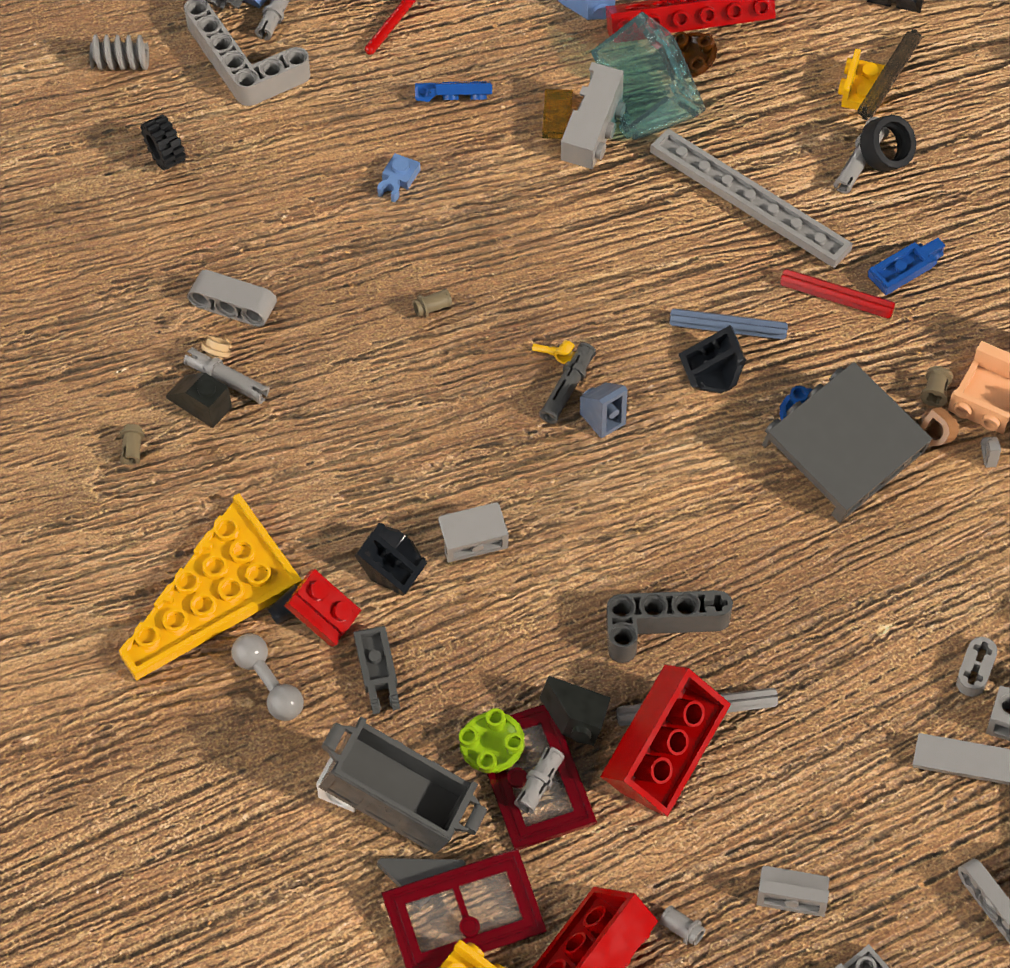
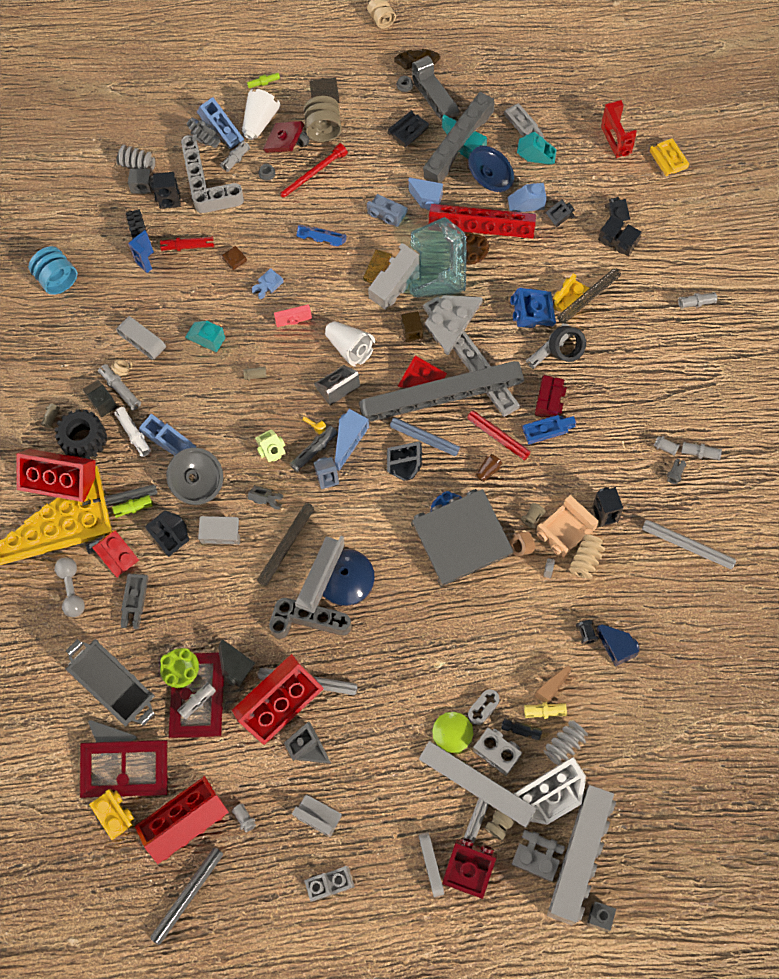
camera: 20 degrees right, 10 degrees up
(54, 234) = (52, 270): none -> dark azure wheel
(140, 81) = (140, 181): none -> dark grey brick
(179, 521) = (54, 474): none -> red slope
(186, 176) = (141, 249): none -> blue panel
(190, 81) = (166, 190): none -> black brick
(191, 436) = (74, 423): none -> black tyre
(249, 150) = (187, 243): none -> red pin
(284, 439) = (135, 436): none -> white pin
(303, 525) = (127, 495): none -> dark grey axle
(318, 537) = (132, 506): none -> lime pin
(330, 154) = (234, 258): none -> reddish brown plate
(332, 24) = (266, 172): none -> dark grey plate
(332, 426) = (164, 435): none -> medium blue slope
(333, 268) = (206, 335): none -> teal slope
(412, 455) = (206, 473): none -> dark grey dish
(458, 209) = (293, 315): none -> coral plate
(502, 393) = (270, 446): none -> yellowish green brick
(516, 467) = (263, 495): none -> dark grey plate
(538, 34) = (386, 210): none -> sand blue bracket
(562, 220) = (350, 342): none -> white cone
(568, 284) = (338, 384): none -> dark grey slope
(581, 527) = (285, 544): none -> clear smoke axle
(614, 344) = (351, 430): none -> medium blue slope
(646, 179) = (411, 326): none -> dark brown panel
(658, 546) = (320, 574): none -> light grey panel
(686, 561) = (354, 586): none -> dark blue dish
(690, 241) = (419, 373): none -> red wing
(702, 153) = (451, 318): none -> light grey wing
(729, 254) = (441, 391): none -> dark grey beam
(737, 793) = (306, 746): none -> dark grey slope
(814, 110) = (533, 308): none -> blue plate
(843, 338) = (489, 467): none -> reddish brown cone
(891, 221) = (549, 397): none -> dark red brick
(946, 712) = (452, 732): none -> lime dish

